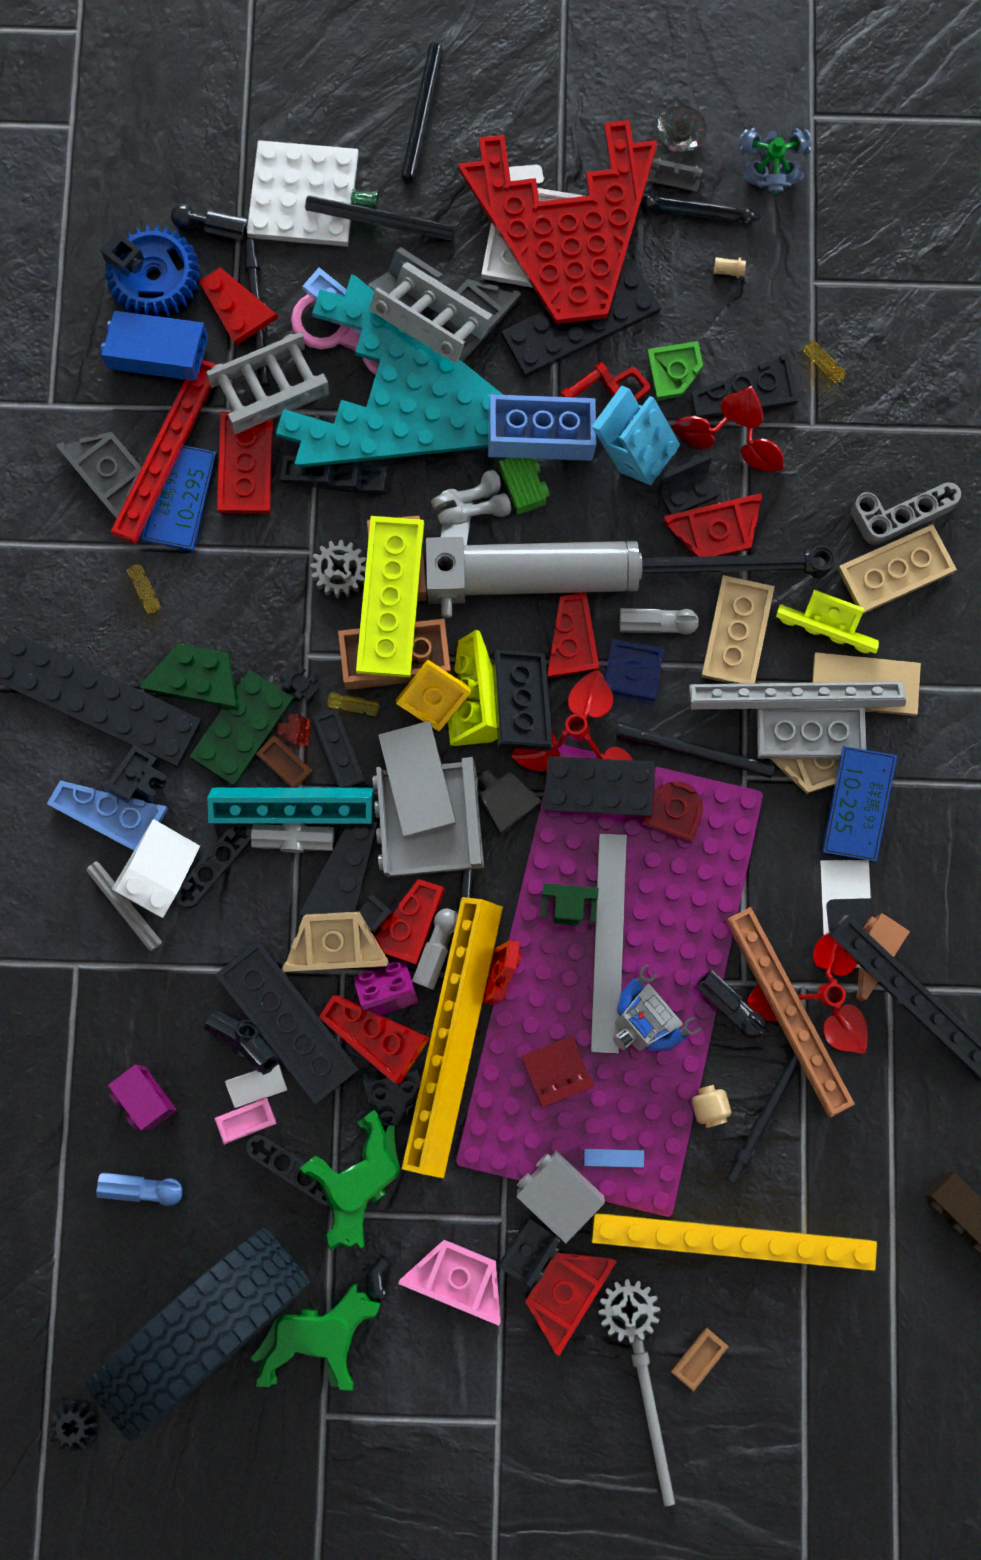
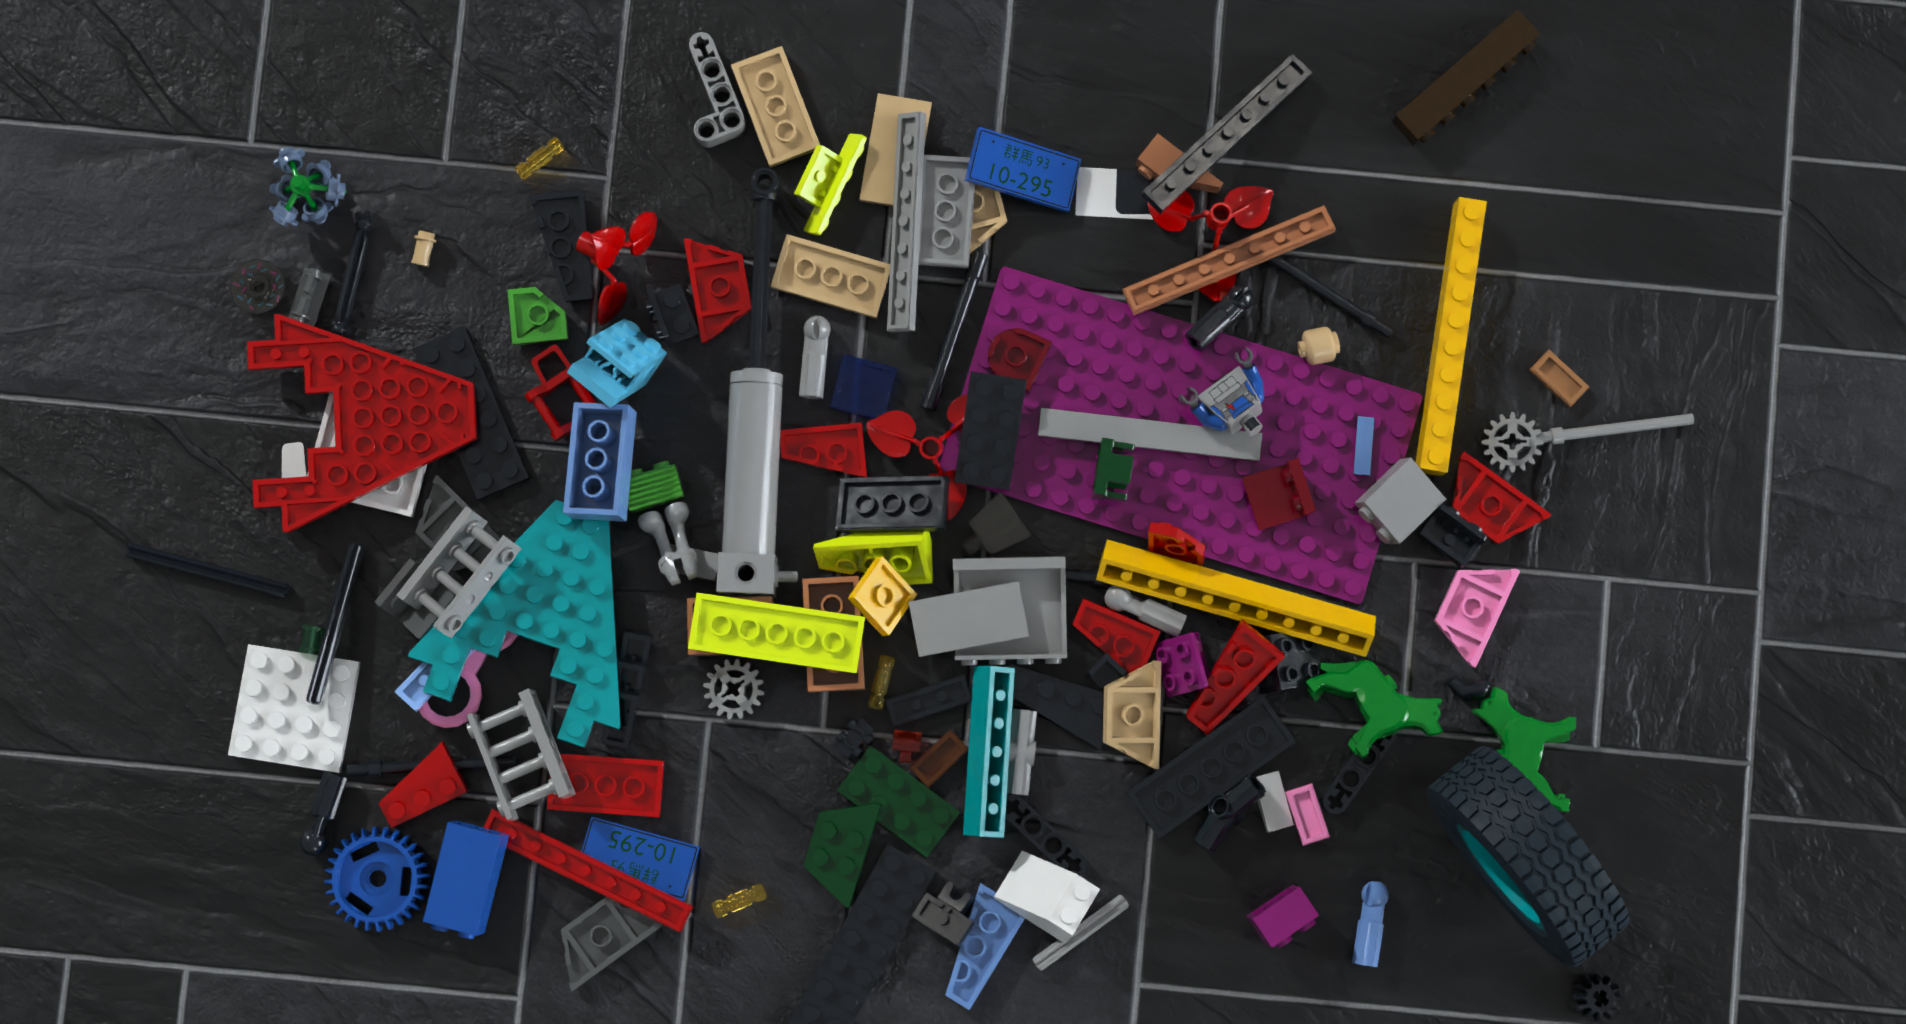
camera: 90 degrees left, 5 degrees up
(121, 248) = (353, 911): black brick -> none

